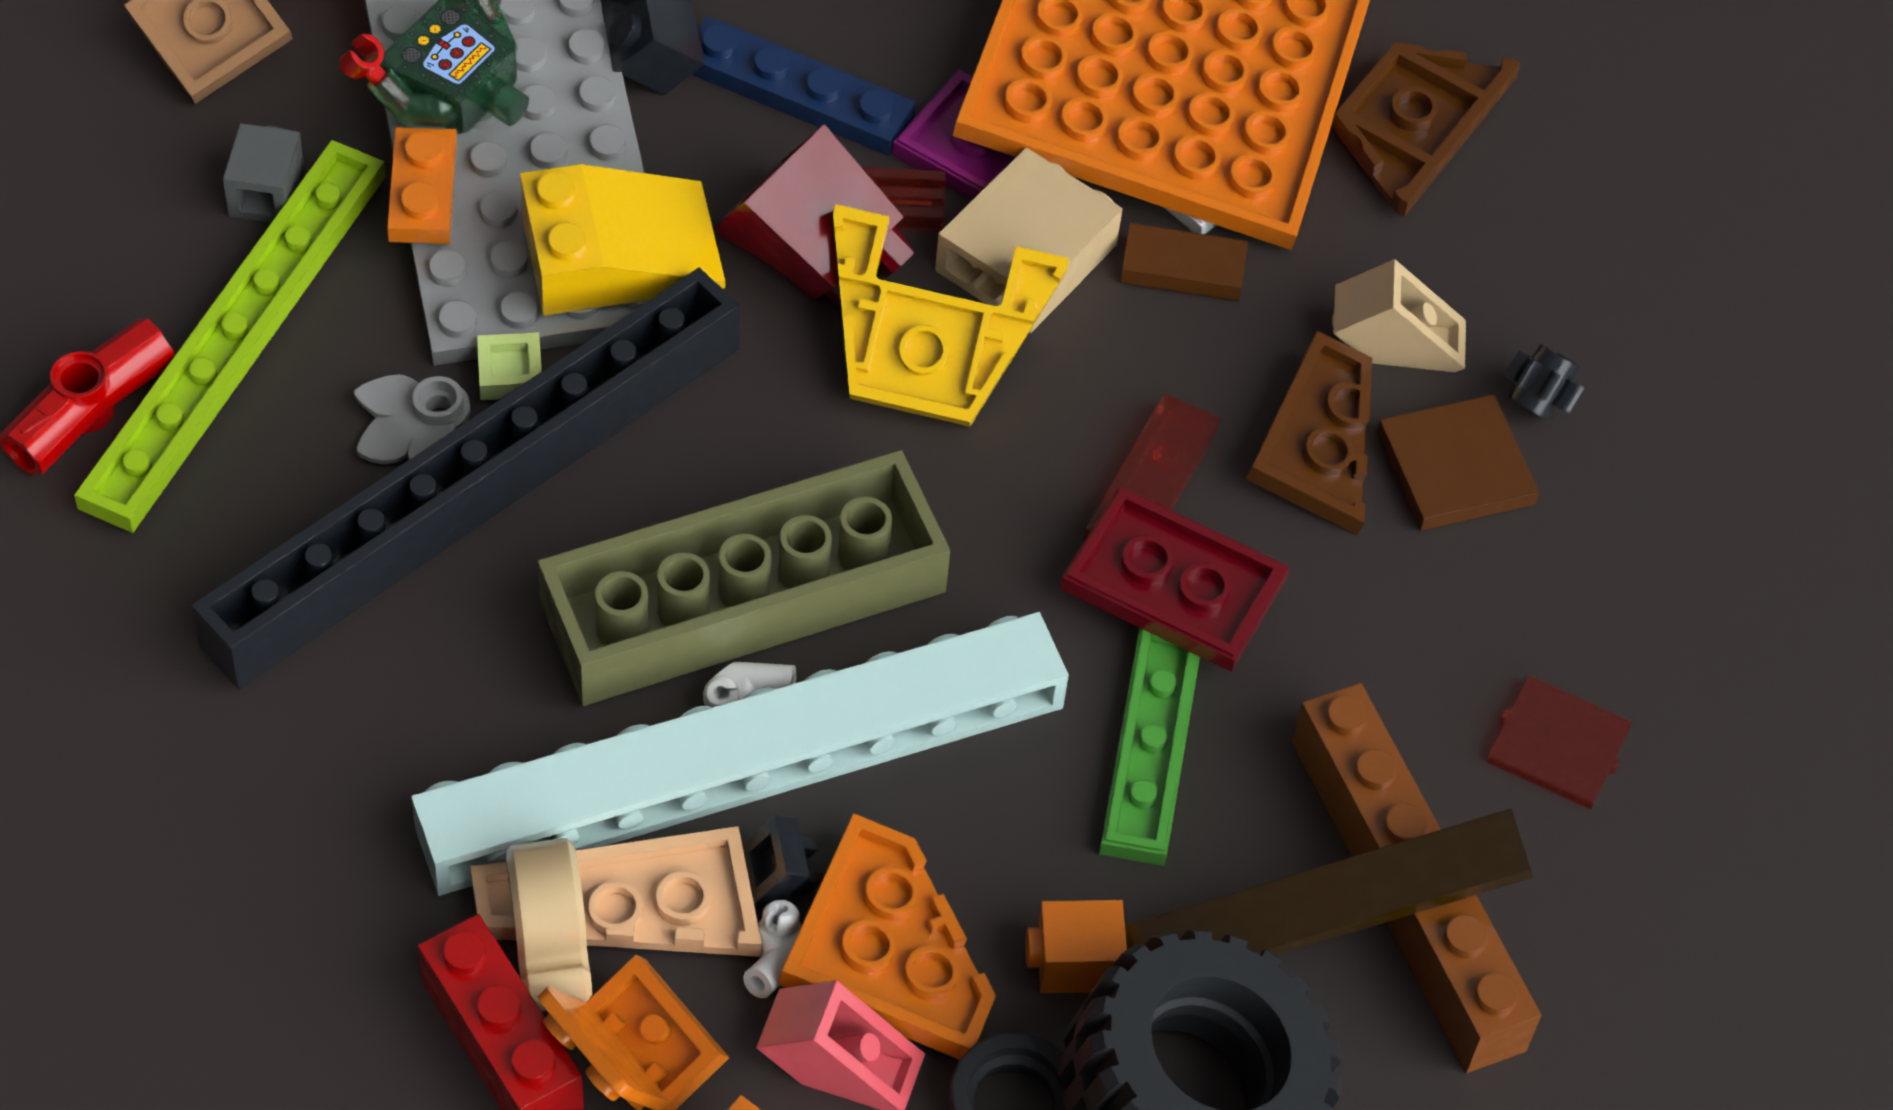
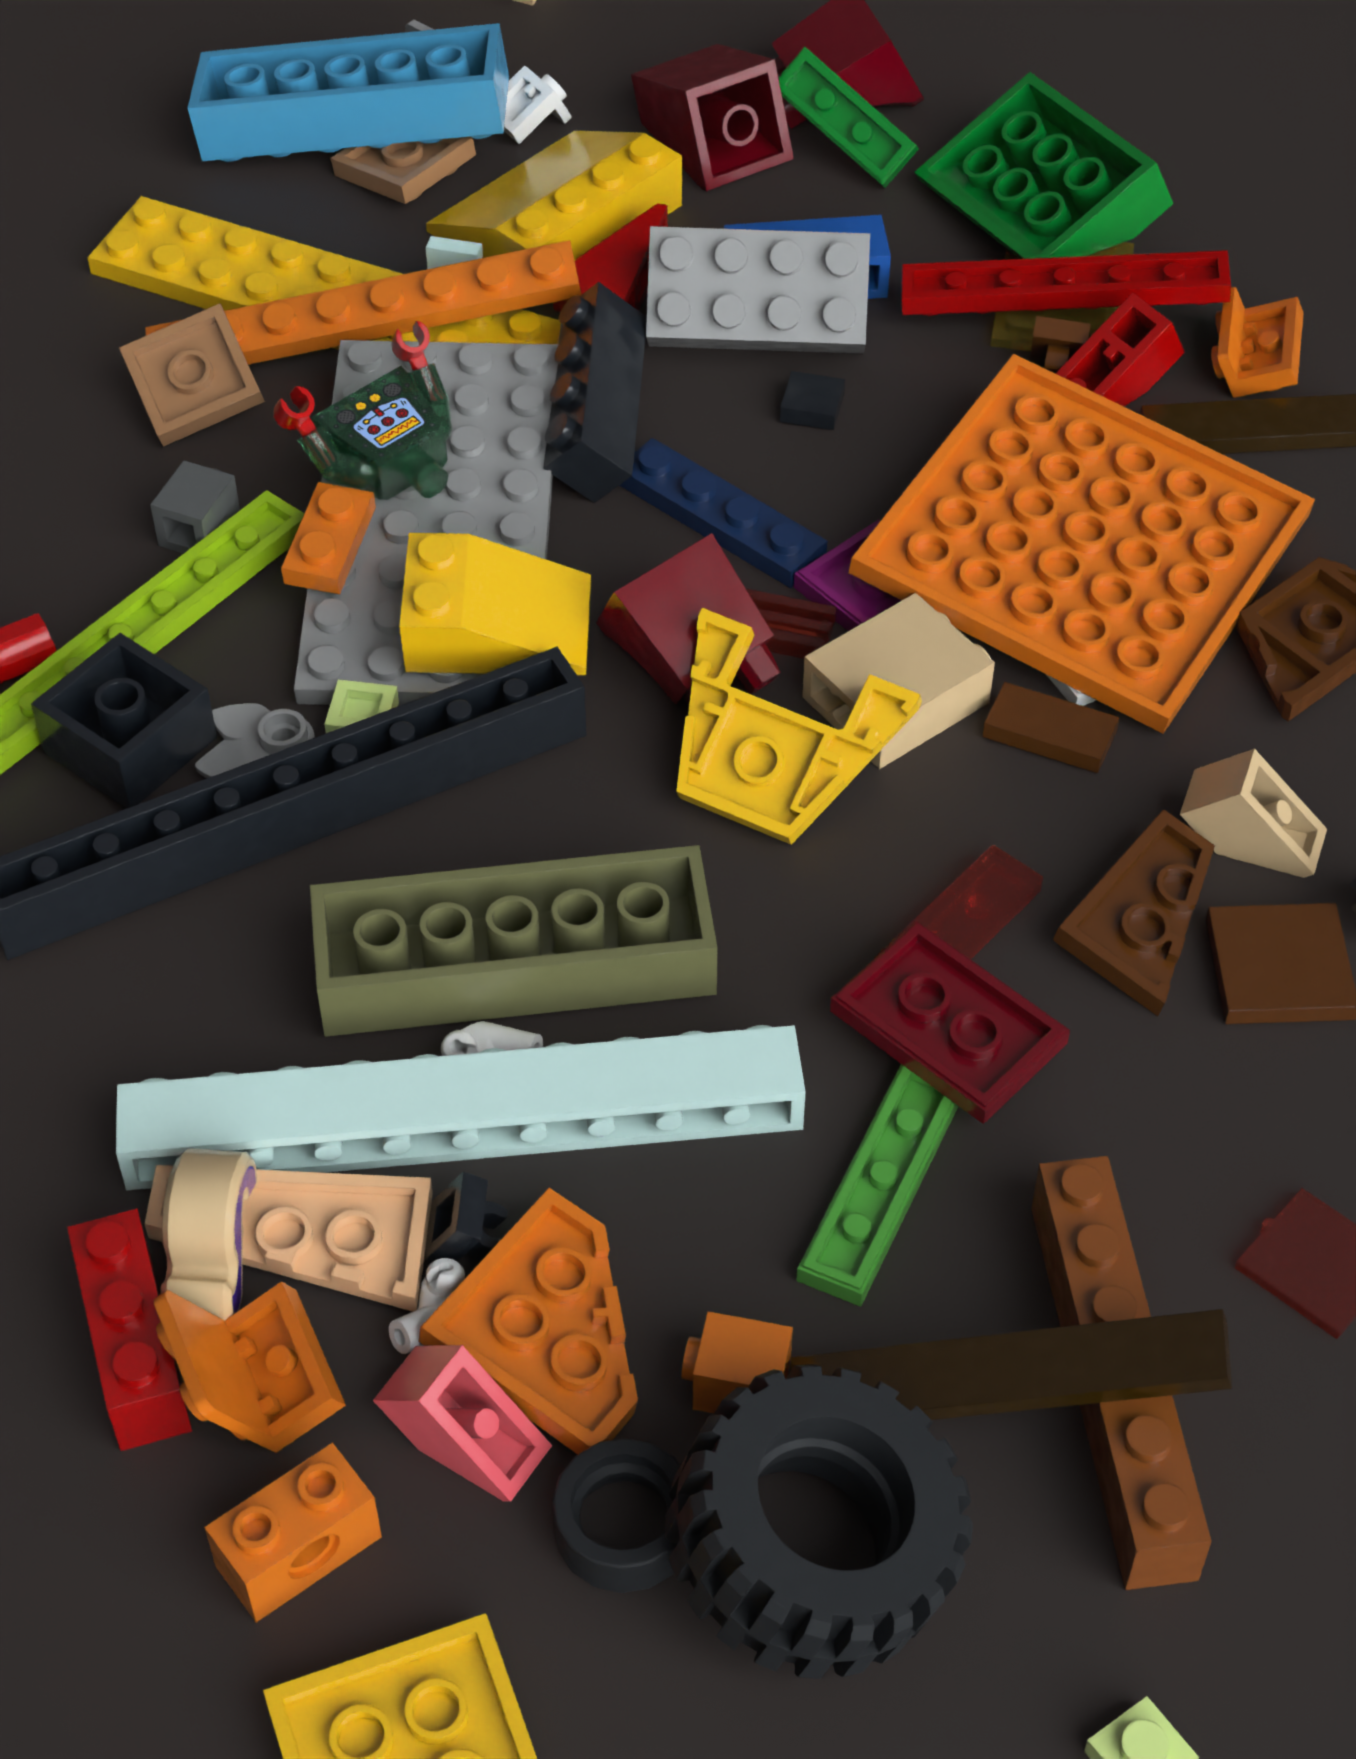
camera: 20 degrees right, 5 degrees down
(278, 419) = (124, 720): none -> black brick

